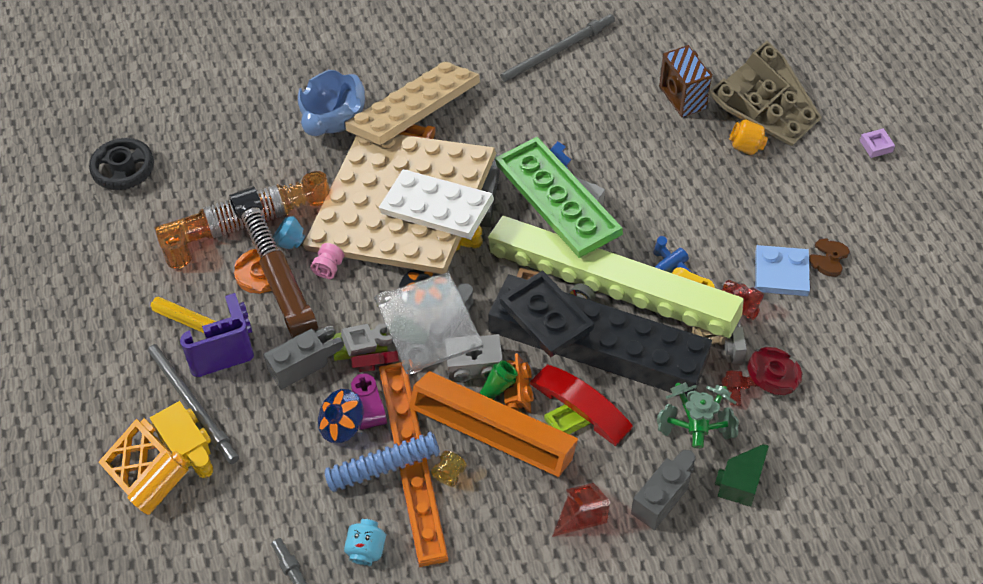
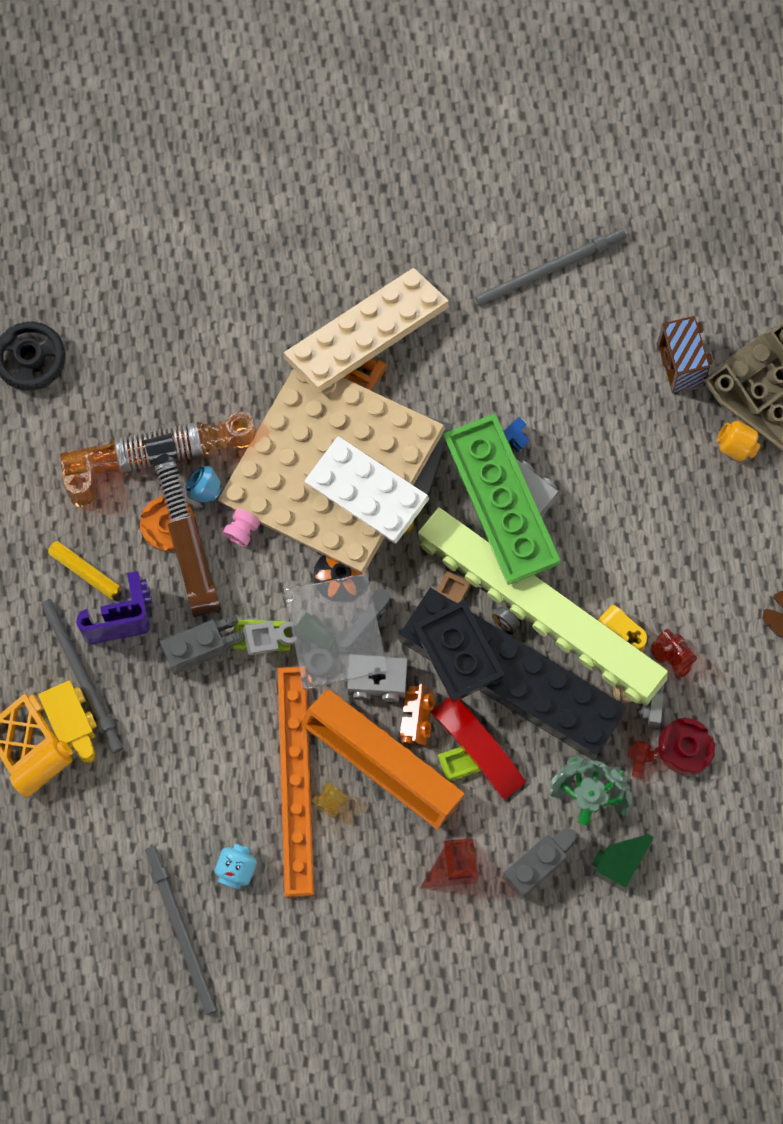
camera: 10 degrees right, 20 degrees up
(330, 102) = (271, 317): medium blue piece -> none
(340, 416) = (238, 722): clear blue dish -> none
(368, 362) = (272, 661): dark red plate -> none
(373, 407) = (259, 716): magenta piece -> none
(381, 462) = (264, 783): medium blue piece -> none
(500, 378) = (398, 710): green cone -> none
(671, 260) = (611, 593): blue piece -> none
(782, 270) = (729, 622): light blue plate -> none

